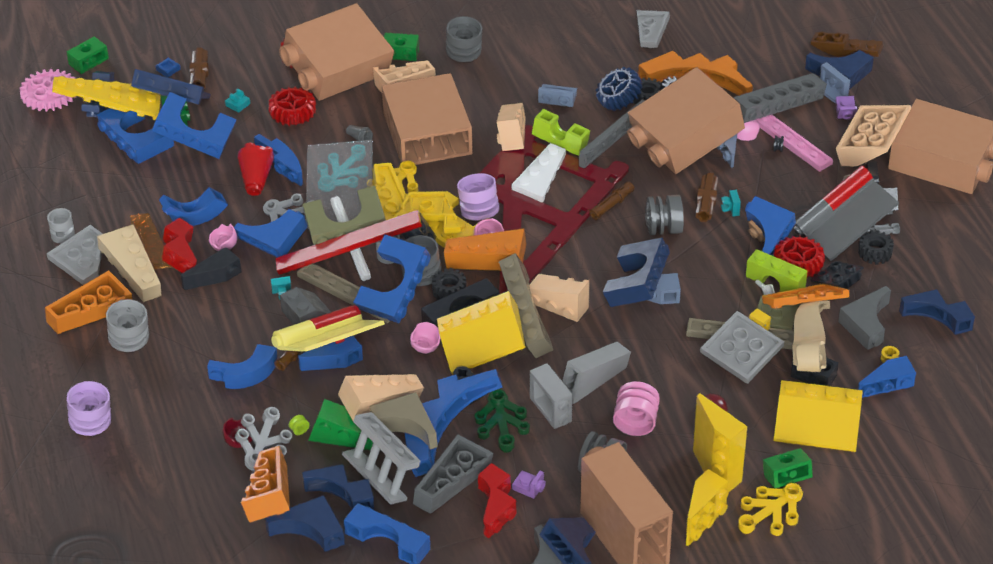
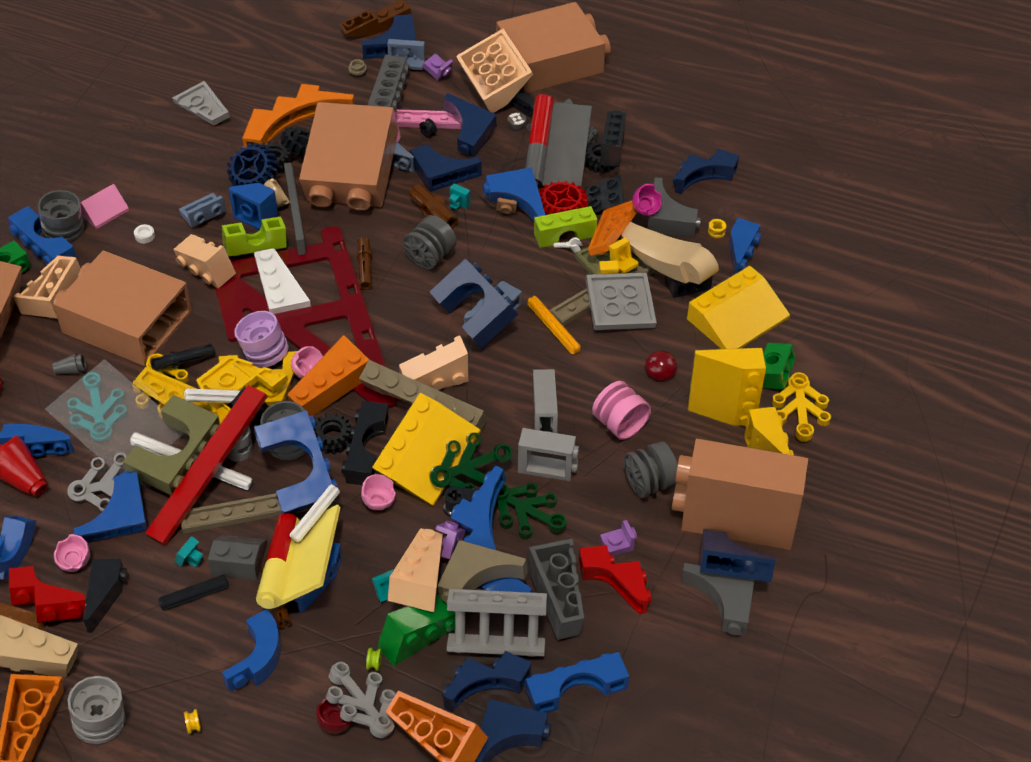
camera: 50 degrees left, 5 degrees up
(167, 374) = (192, 721): none -> yellow bush
(258, 310) = (193, 592): none -> black axle
(366, 316) = (314, 513): none -> white axle
(394, 201) = (208, 395): none -> white axle
(424, 175) = (174, 359): none -> black pin
(429, 392) = (453, 536): none -> medium lavender bracket
(434, 54) = (27, 227): none -> blue arch
(492, 361) = (466, 465): none -> dark green plant
(501, 51) = (103, 206): none -> bright pink slope
(505, 86) = (144, 234): none -> white tile
(588, 111) = (253, 203): none -> blue slope
(612, 113) = (281, 198): none -> tan hair
(679, 329) = (554, 325): none -> light orange axle
(745, 178) = (440, 171): none -> dark blue arch
(781, 318) = (622, 253): none -> yellow bracket
(789, 71) = (357, 67): none -> dark tan plate
(807, 164) = (475, 122): none -> dark blue arch
(847, 292) = (647, 200): none -> dark pink hair
(877, 241) = (613, 138): none -> black arch

